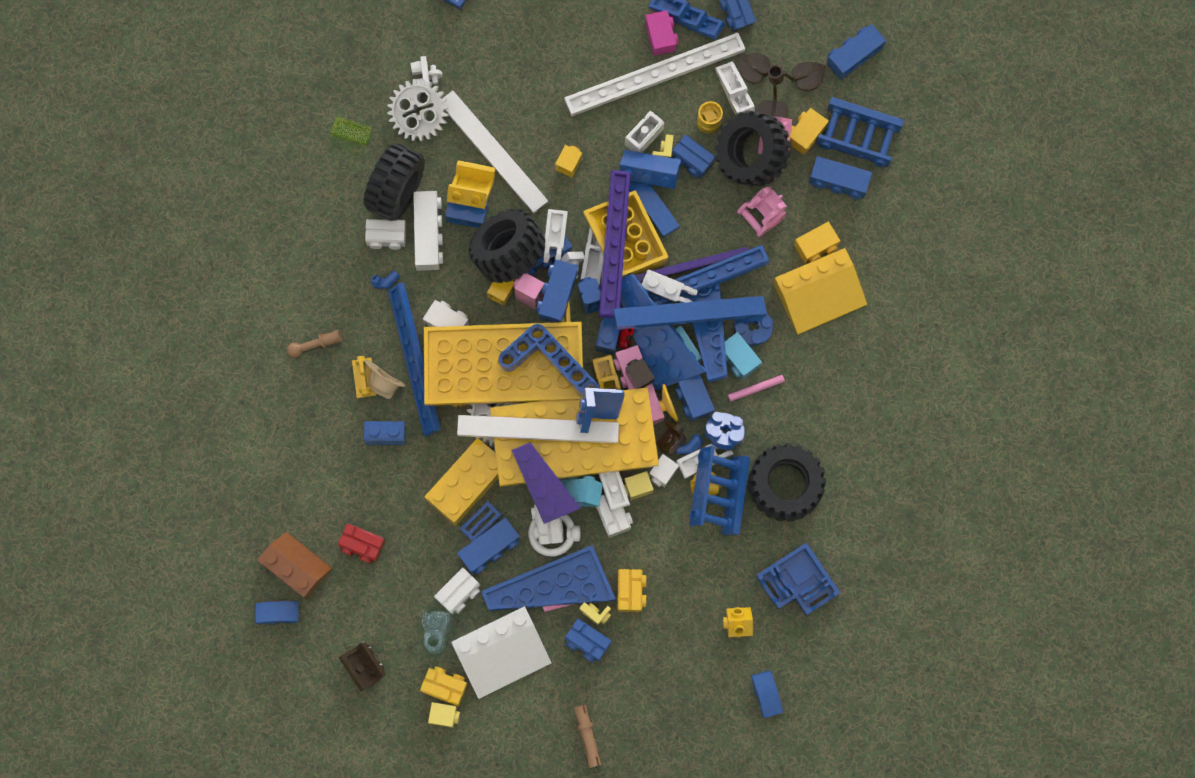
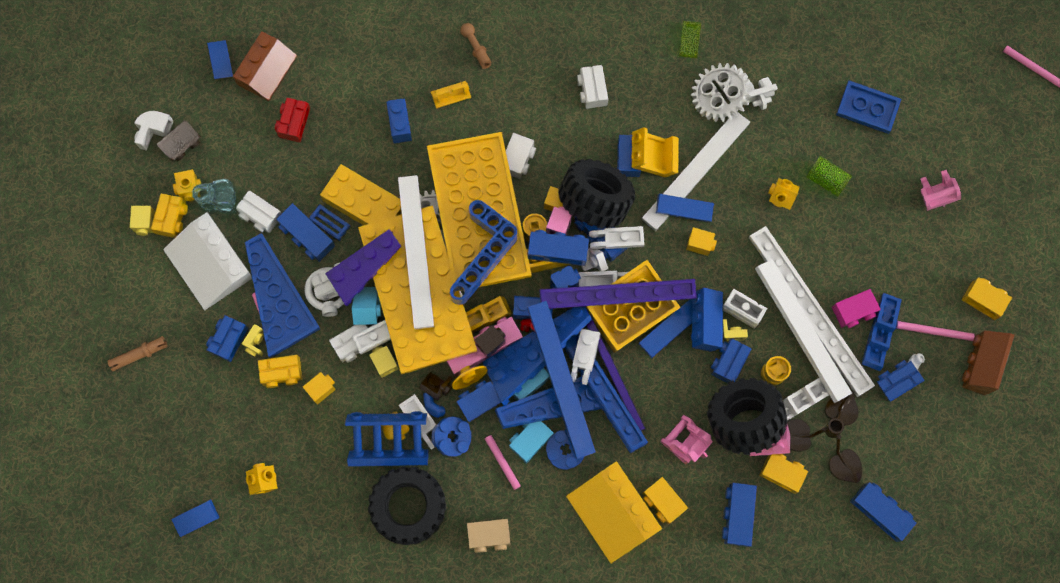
camera: 80 degrees right, 0 degrees up
(335, 693) = (149, 124): none -> white brick
(383, 383) = (450, 109): tan piece -> none
(384, 283) = (545, 95): blue arm -> none
(394, 182) = (639, 78): black tyre -> none
(408, 659) = (185, 183): none -> yellow brick
(413, 356) = (486, 128): blue tile -> none
(427, 230) = (603, 123): white brick -> none
(524, 28) = (829, 176): none -> clear neon green brick
(526, 313) = (532, 223): none -> yellow wheel
(531, 169) = (684, 208): none -> blue tile
(535, 73) = (783, 193): none -> yellow brick
(599, 405) = (445, 300): blue bracket -> none
(654, 553) = (320, 387): none -> yellow brick
(664, 472) = (401, 383): white brick -> none
(674, 84) = (803, 331): none -> white tile
(798, 578) = (313, 533): blue piece -> none
(827, 408) = (488, 534): none -> tan brick
(872, 118) = (813, 521): blue fence -> none

